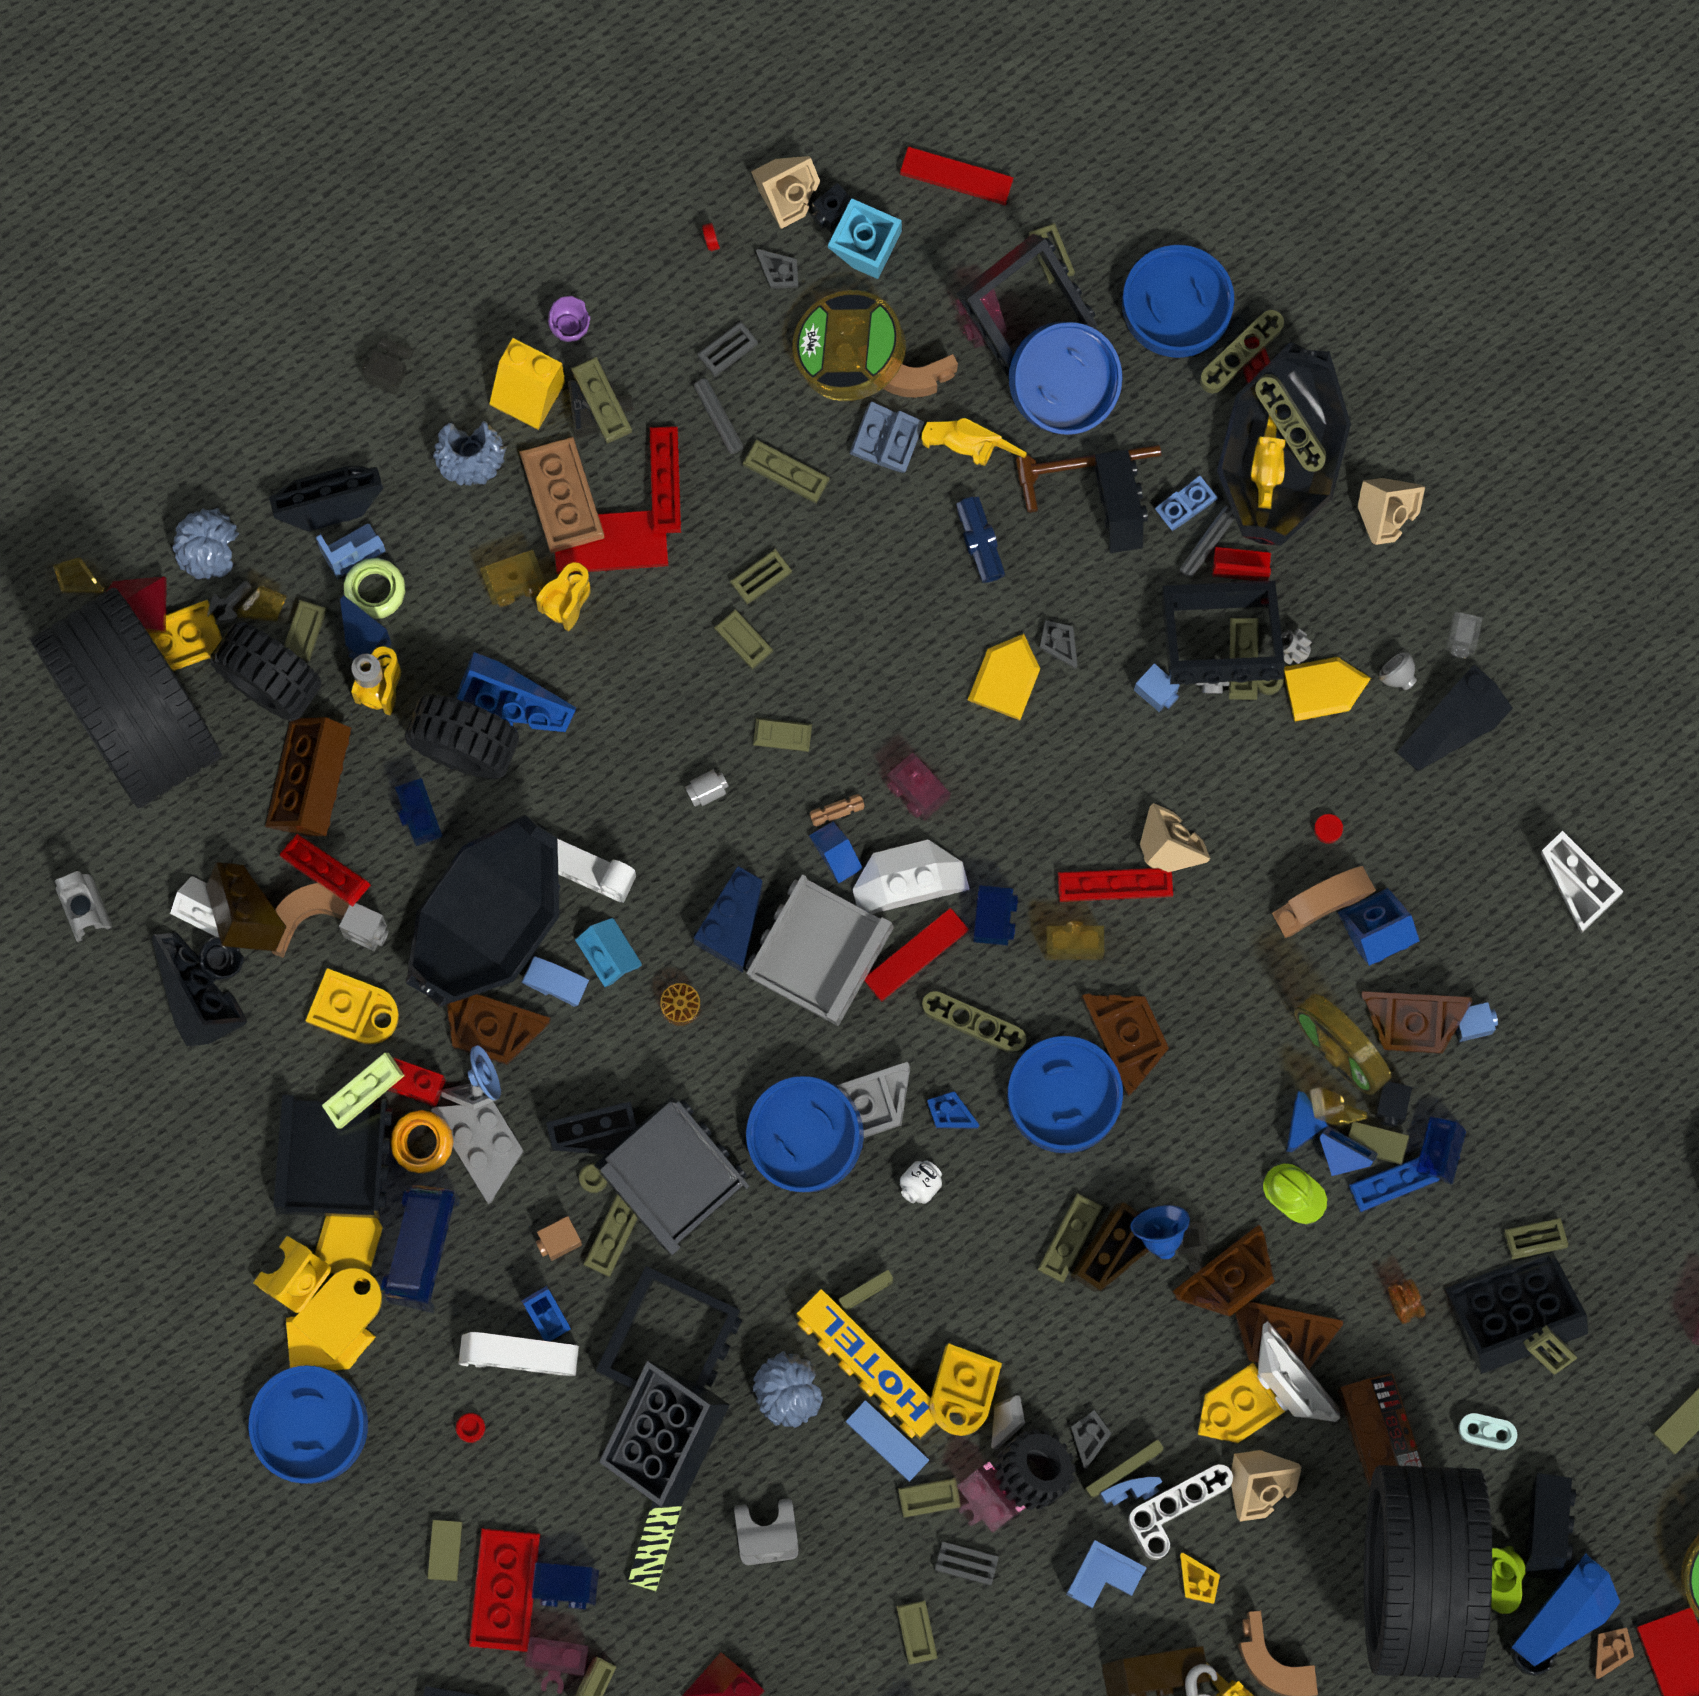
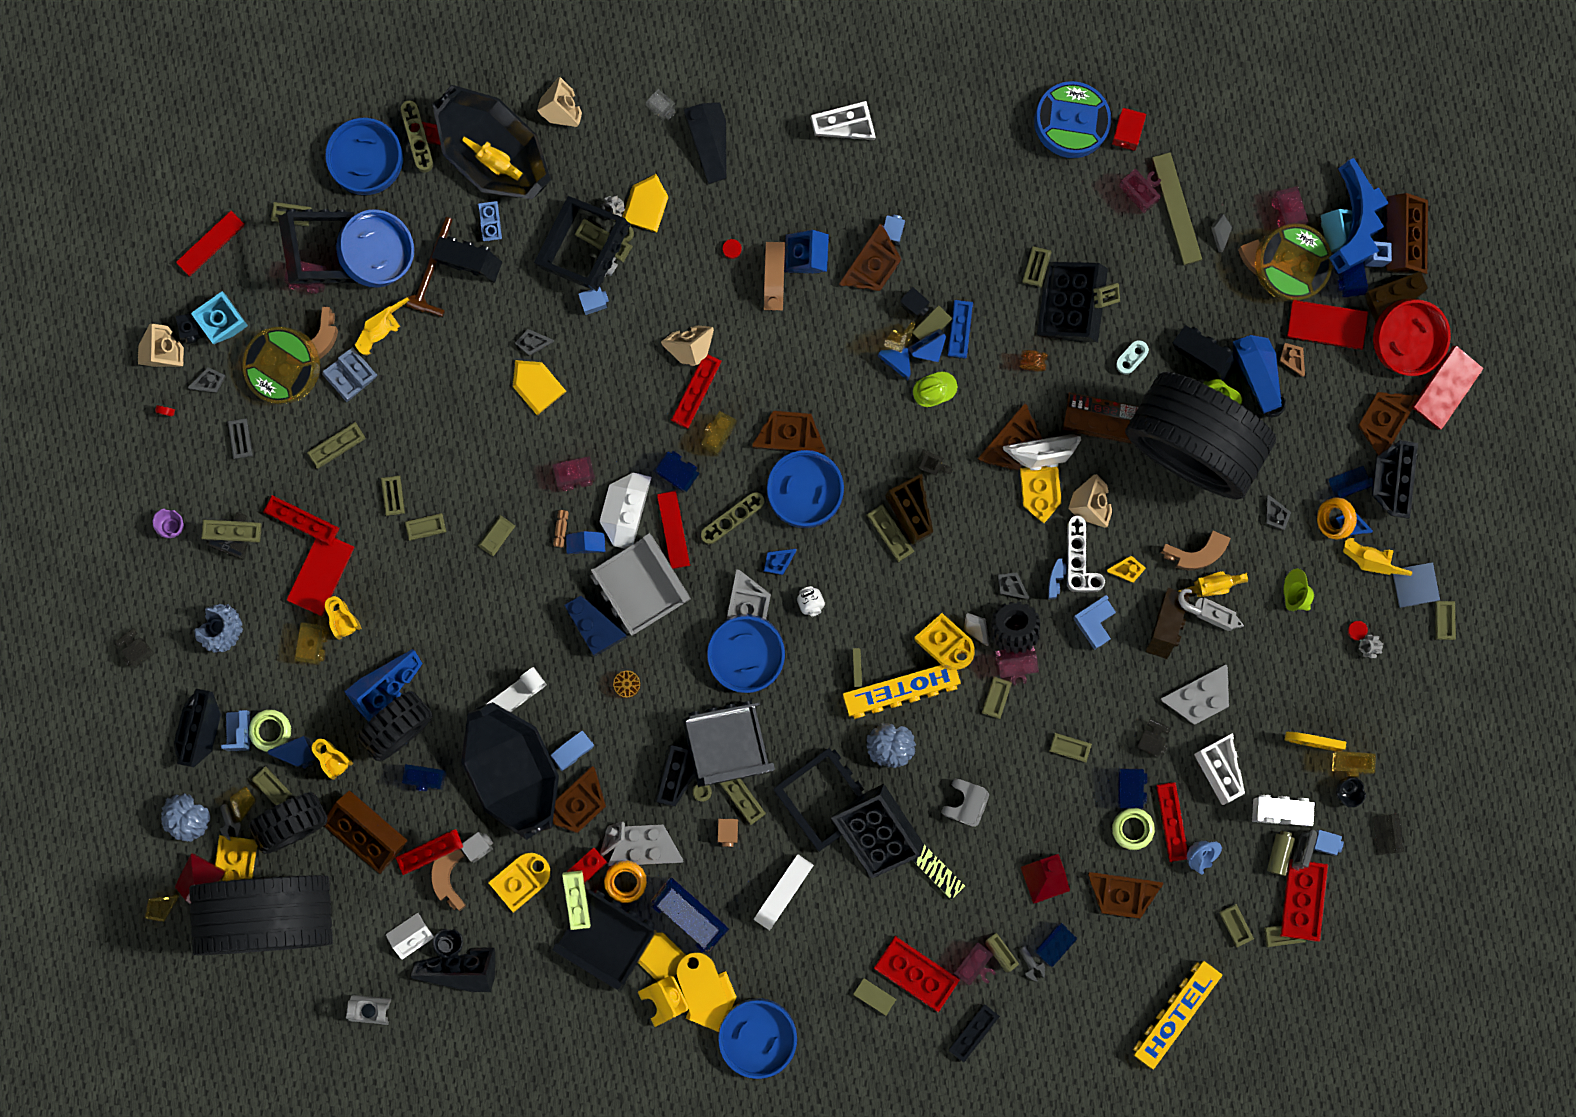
camera: 60 degrees left, 5 degrees up
(242, 910) = (426, 914): dark brown wedge -> none
(370, 678) = (330, 761): light grey brick -> none
(470, 1427) = (810, 943): red tile -> none
(483, 1073) = (606, 823): medium blue dish -> none
(526, 383) = (195, 570): yellow slope -> none
(546, 1314) = (769, 863): blue slope -> none
(561, 495) = (275, 587): medium nougat tile -> none
(565, 1584) = (934, 936): clear blue brick -> none
(608, 951) = (571, 710): dark azure panel -> none
(706, 788) = (505, 597): light grey brick -> none
(718, 416) = (279, 467): dark grey axle -> none
(887, 1441) = (950, 704): medium blue tile -> none
(980, 539) = (444, 353): dark blue piece -> none
(990, 1569) = (1057, 685): dark grey tile -> none
(1124, 1469) = (1042, 576): olive tile -> none
(1161, 1229) = (918, 476): blue hat -> none
(1207, 542) = (521, 221): dark grey axle -> none
(1231, 1277) = (965, 452): reddish brown wing -> none
(1241, 564) = (545, 209): red panel -> none
(1295, 420) = (478, 132): olive beam -> none
(1342, 1044) = (867, 312): clear yellow brick -> none
(1399, 671) = (661, 155): light grey brick -> none
(1441, 1149) = (956, 291): clear blue panel -> none

